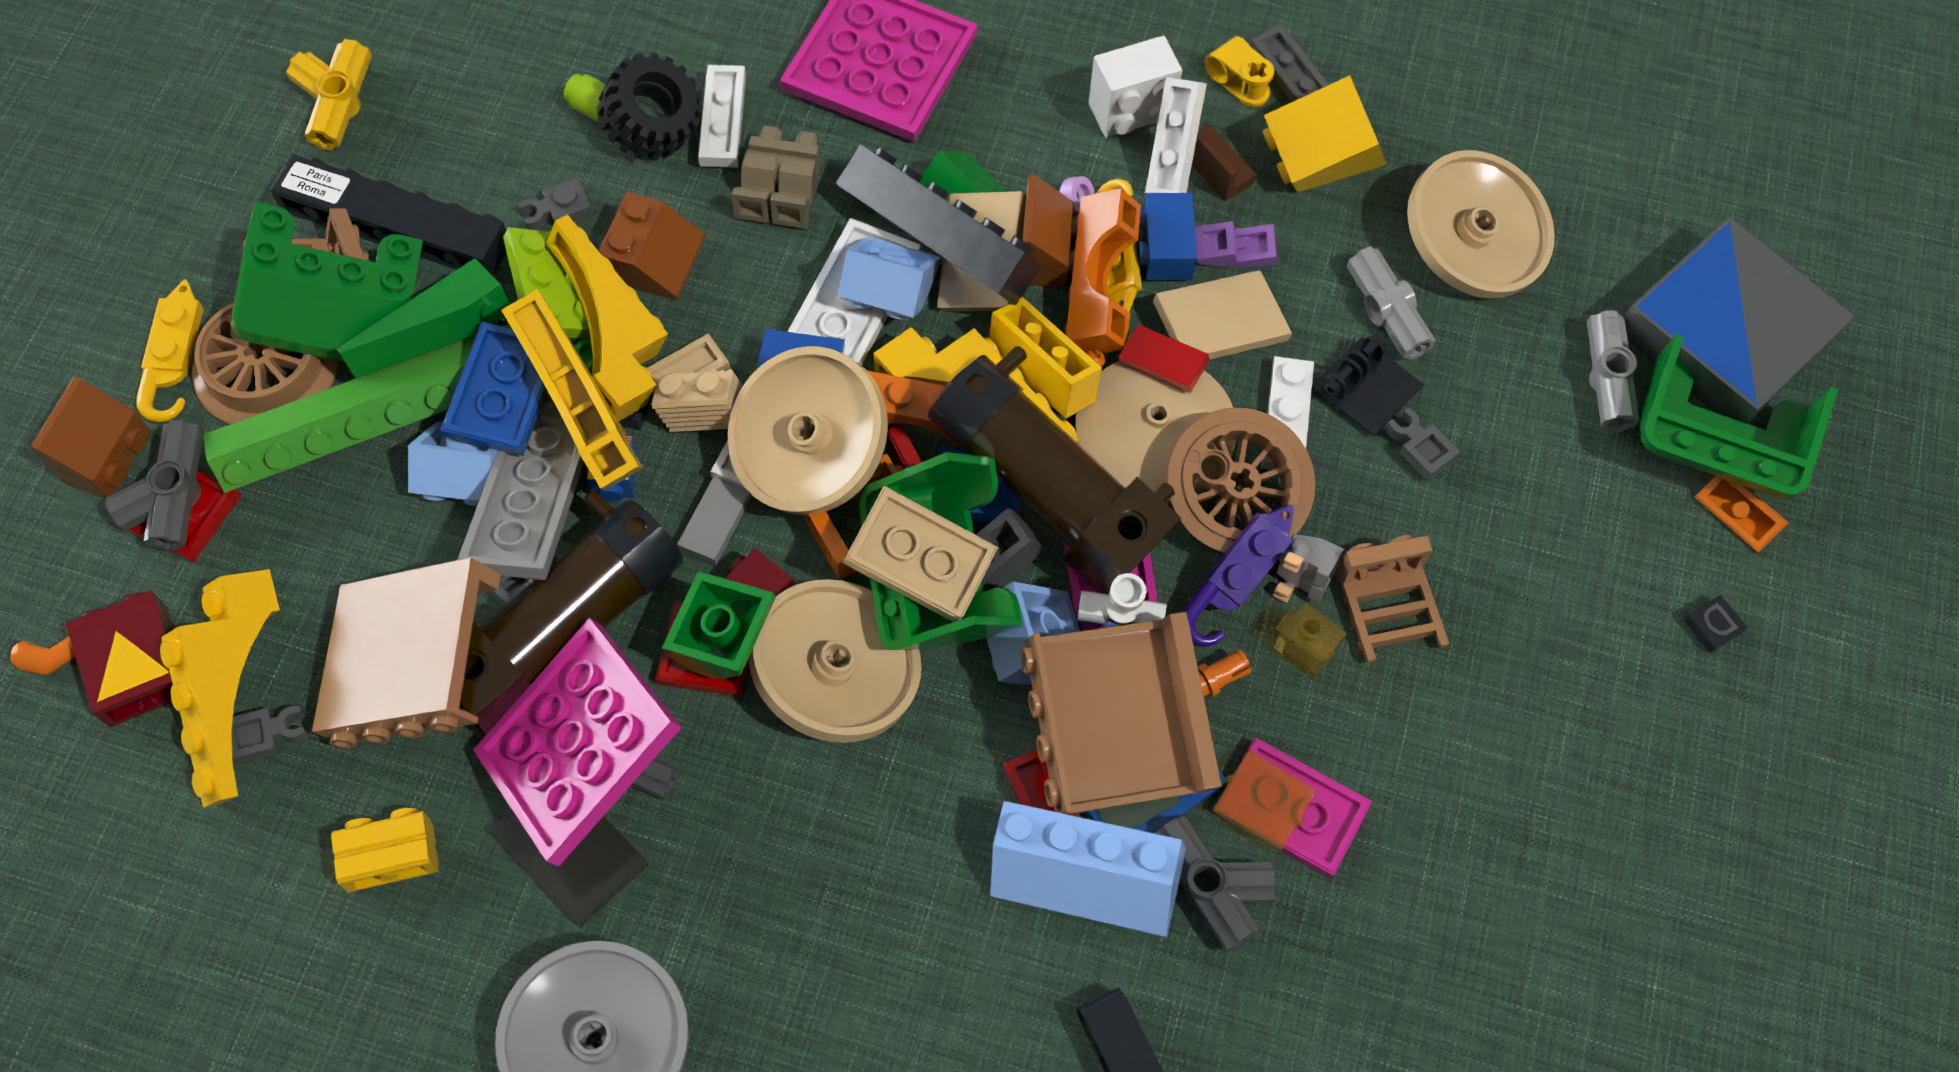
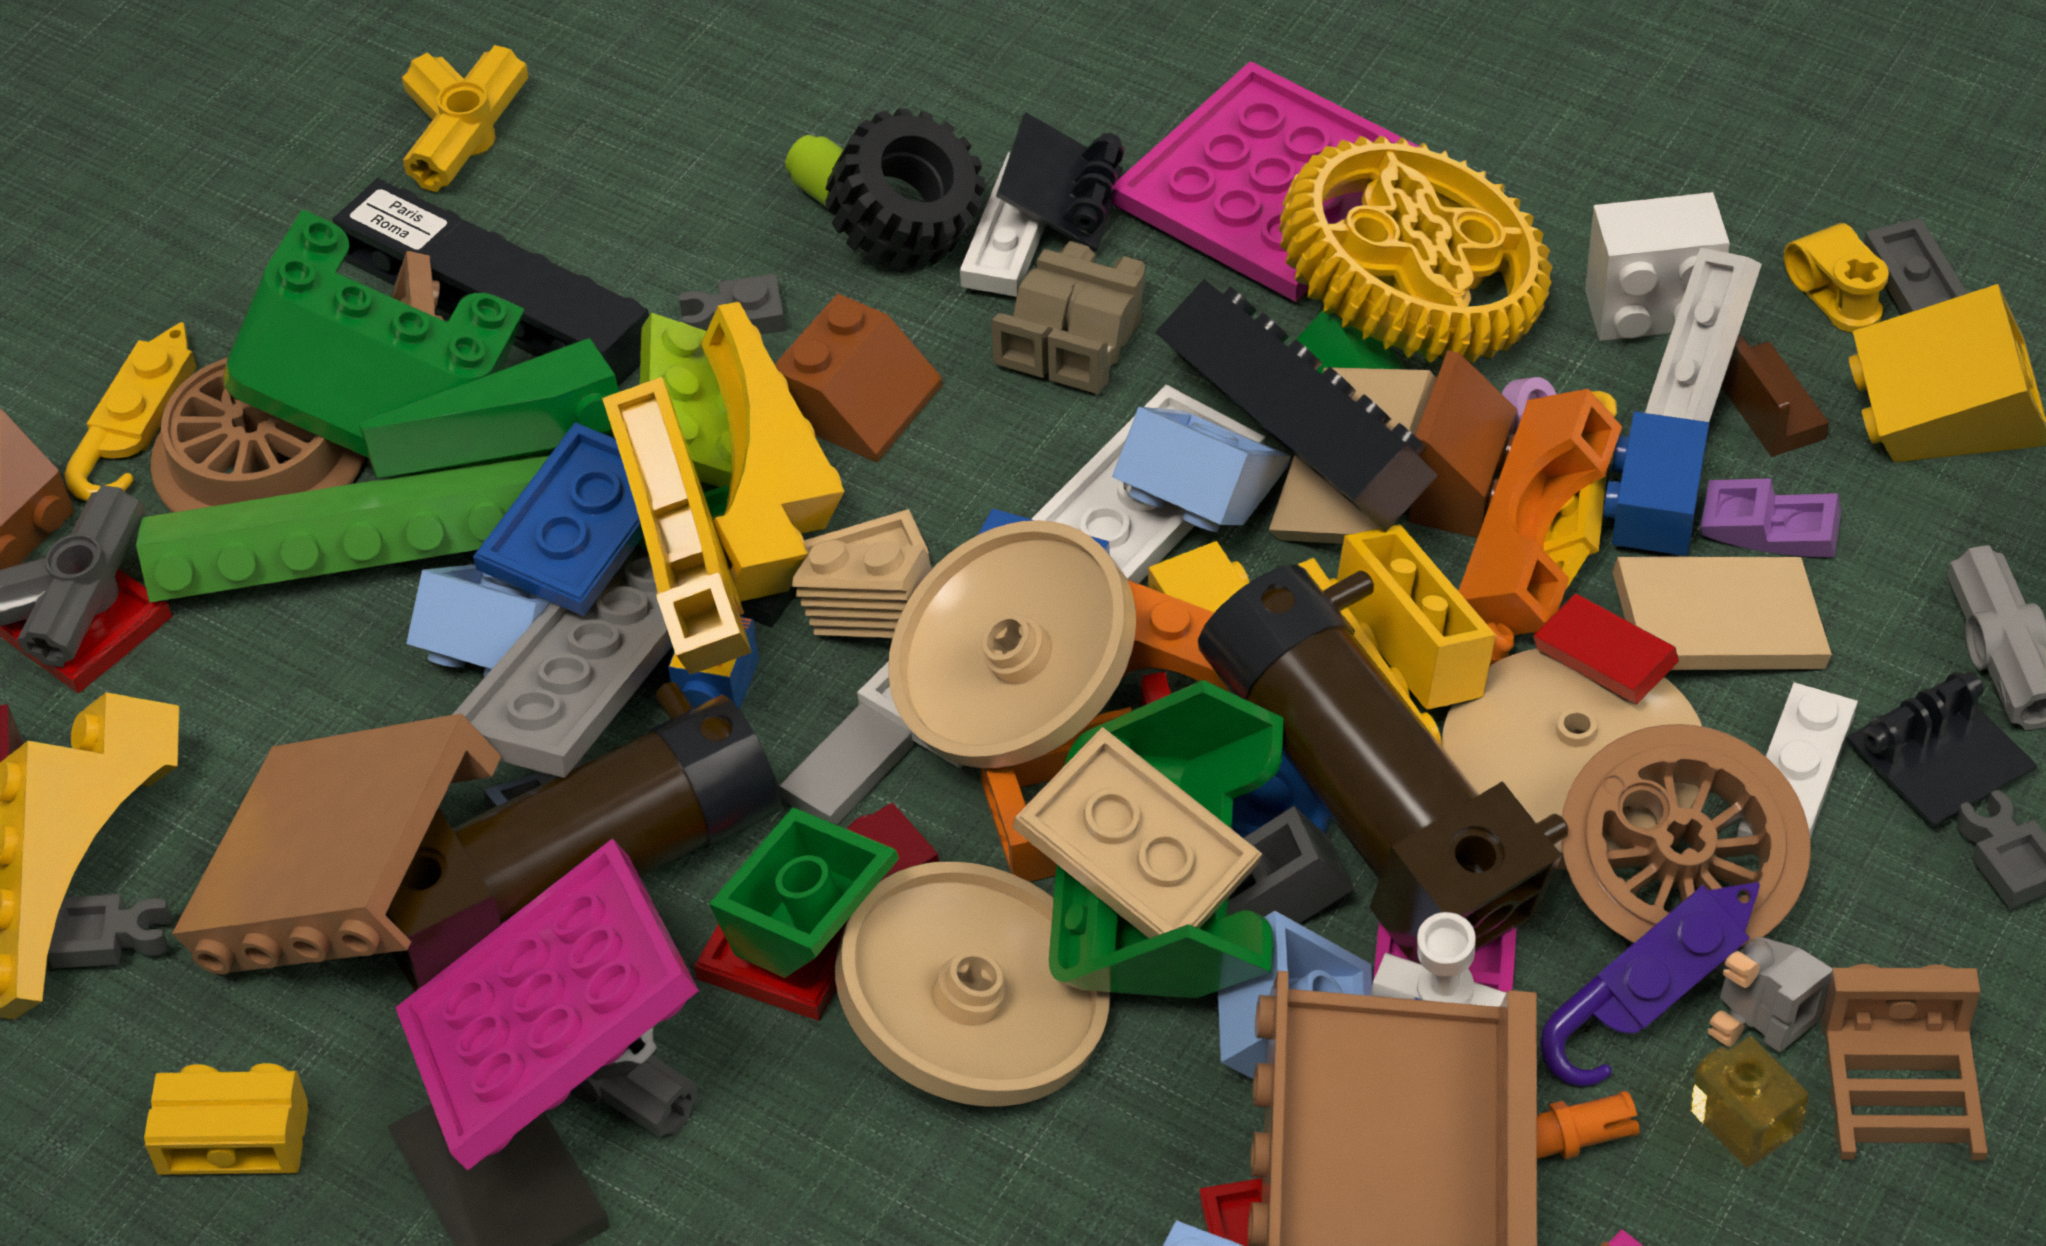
camera: 20 degrees right, 15 degrees down
(749, 81) = (1062, 179): none -> black hinge
(988, 90) = (1414, 249): none -> yellow gear

